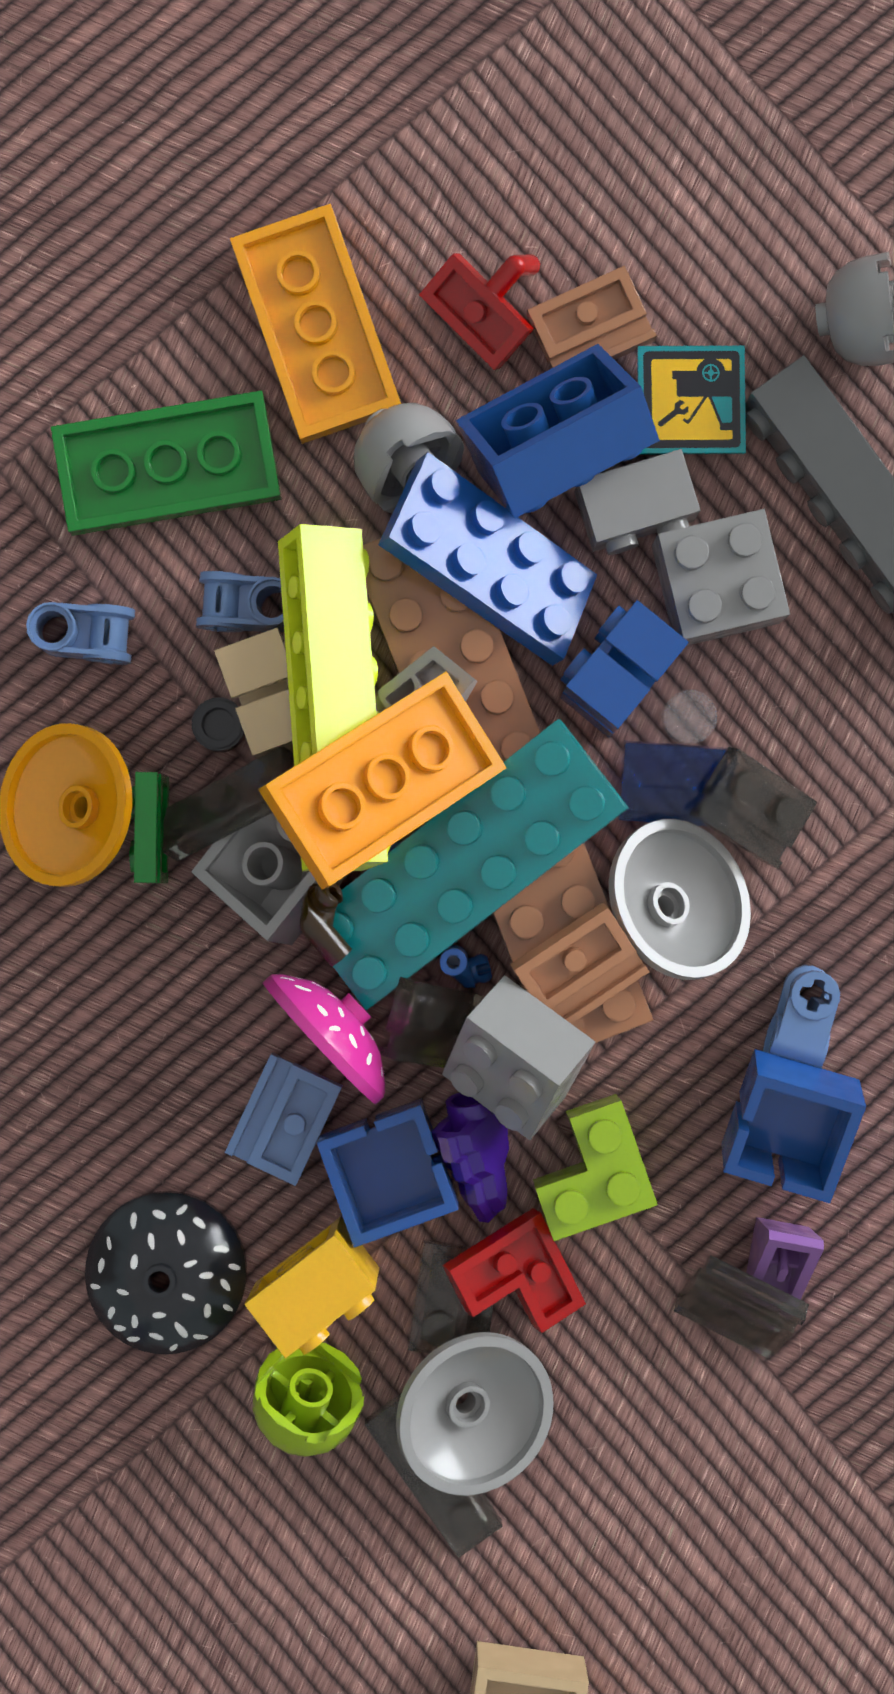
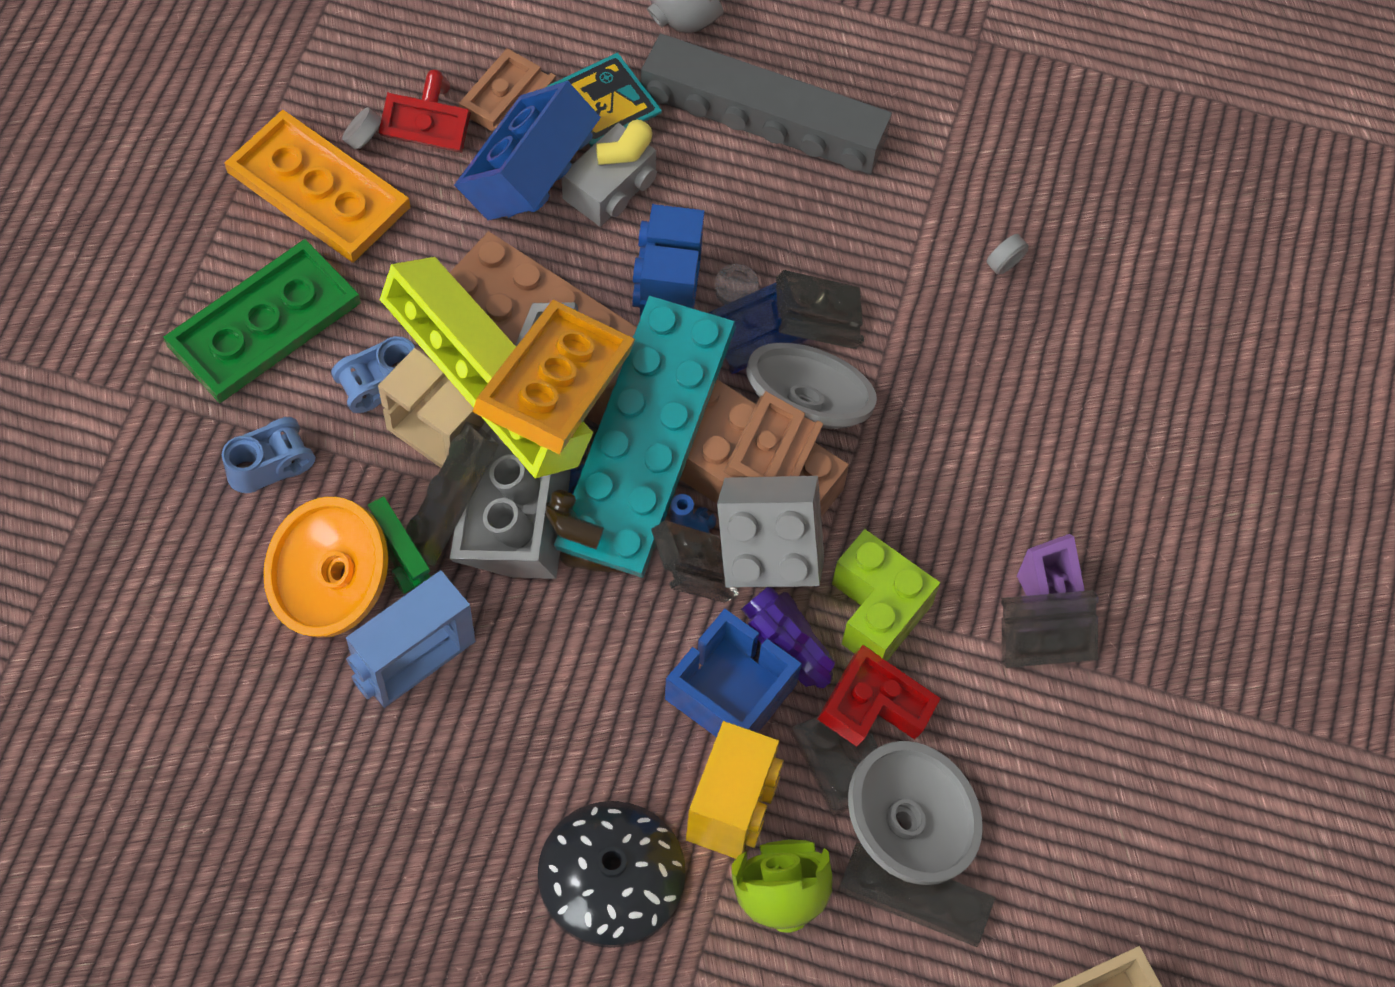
camera: 40 degrees left, 25 degrees down
(98, 939) = (410, 640): none -> medium blue window
(217, 725) = (406, 467): black tile -> none
(283, 1119) = (630, 700): medium blue plate -> none
(334, 1028) = (624, 600): dark pink dish -> none
(393, 444) = (433, 219): light grey cylinder -> none
(403, 278) = (361, 128): none -> light grey tile
(488, 559) = (534, 243): plate -> none
(670, 494) = (629, 147): none -> light yellow arm
(720, 577) = (700, 176): light grey brick -> none
(798, 1114) = (993, 480): blue piece -> none
(799, 1028) = (951, 420): medium blue piece -> none

